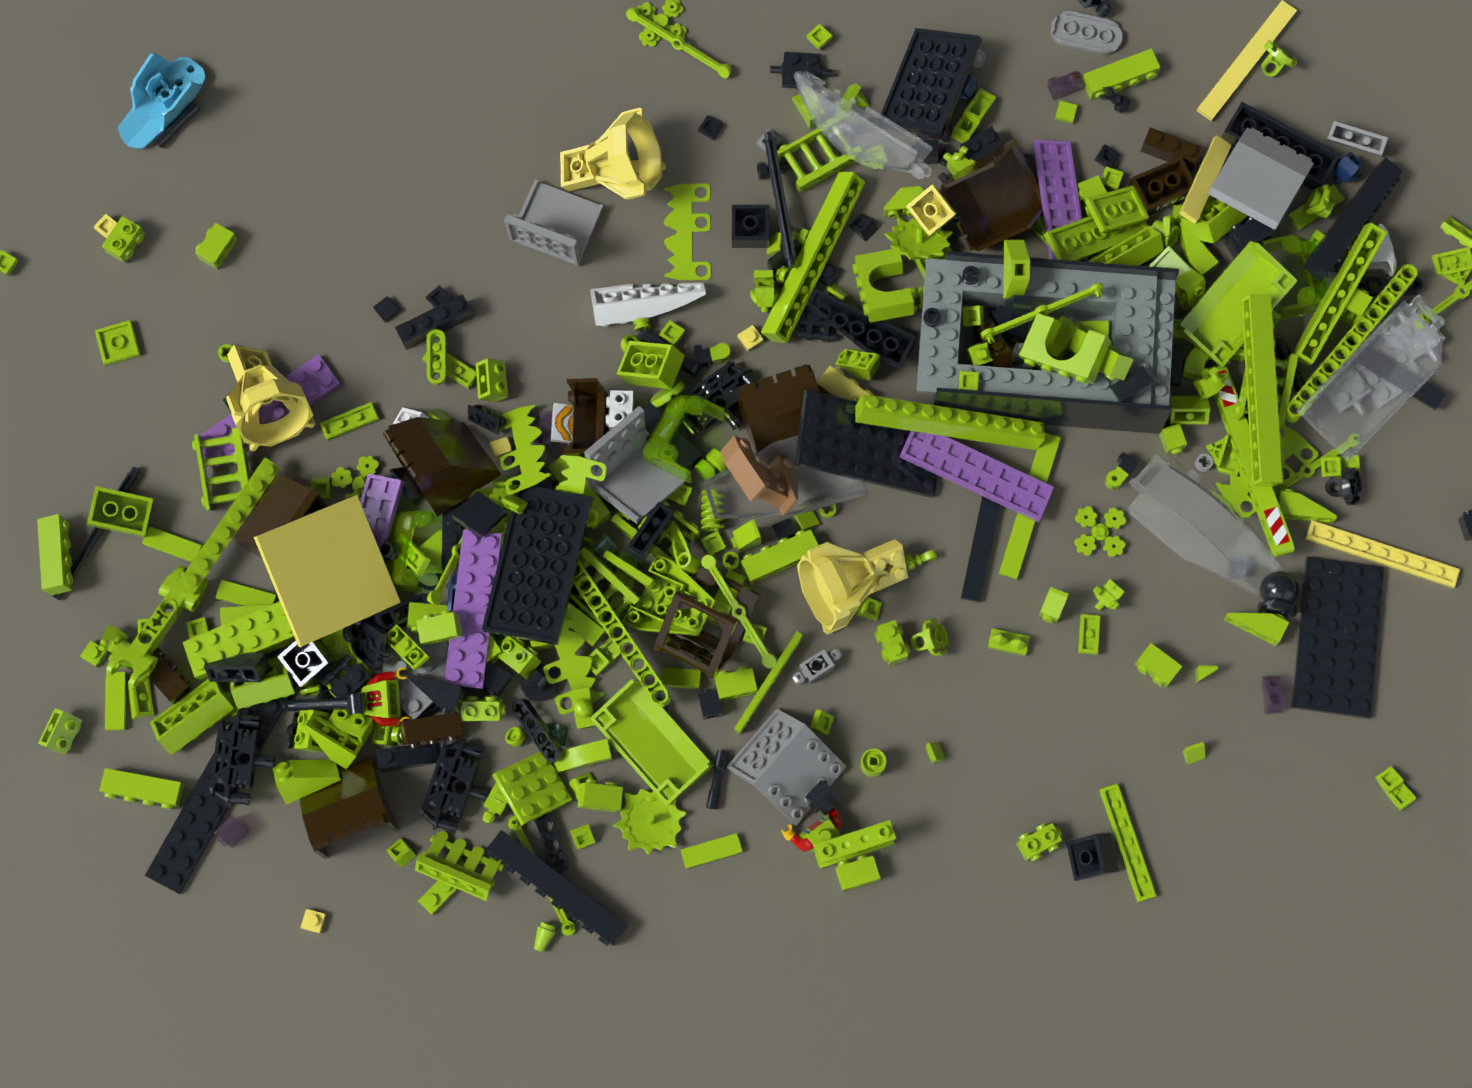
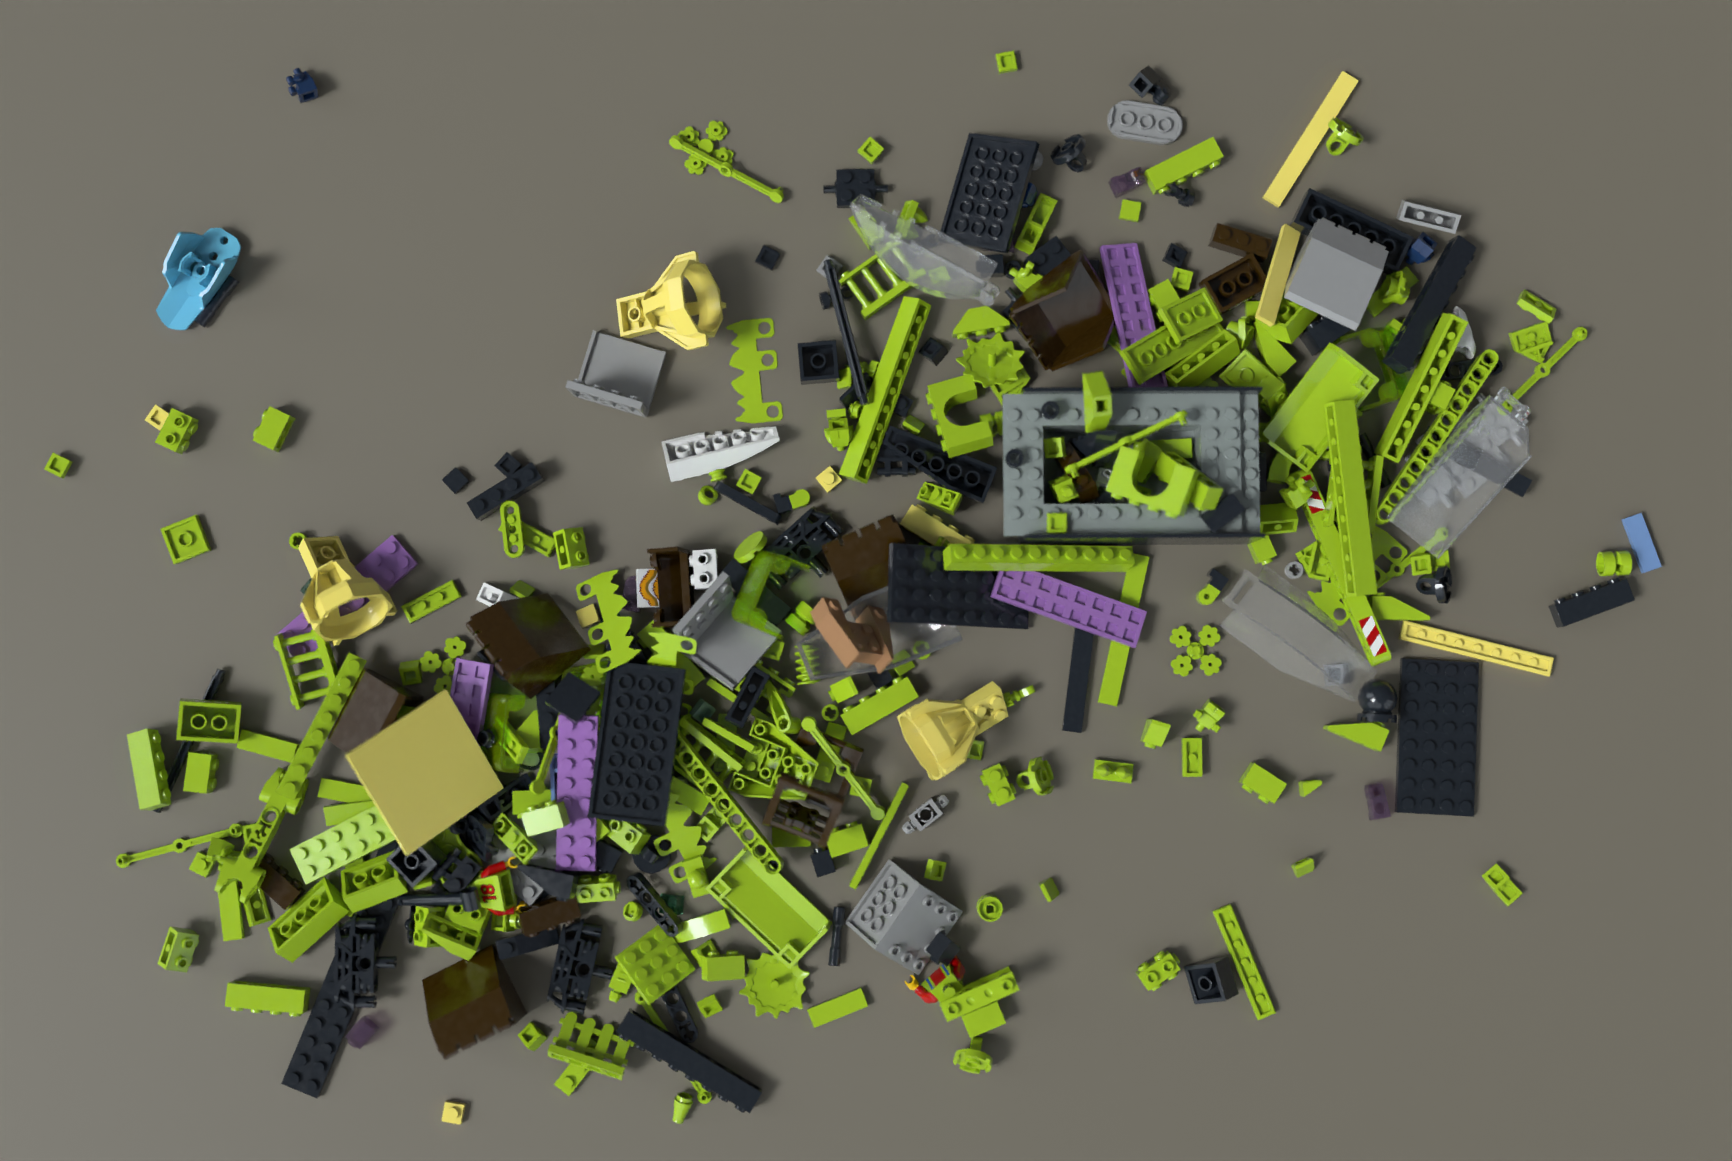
camera: 10 degrees left, 10 degrees up
(17, 643) = (124, 860): none -> lime piece
(104, 563) = (201, 772): none -> lime brick
(197, 627) = (304, 830): lime tile -> none
(239, 668) = (353, 873): black slope -> none
(302, 777) = (427, 975): lime slope -> none
(481, 417) = (562, 585): black hinge -> none
(514, 503) = (607, 683): lime slope -> none
(650, 364) = (730, 520): lime brick -> none
(713, 543) = (811, 696): lime tile -> none
(844, 911) = (973, 1059): none -> lime tile
(931, 210) = (1002, 334): light yellow slope -> none
(1012, 52) = (1070, 151): none -> black tile

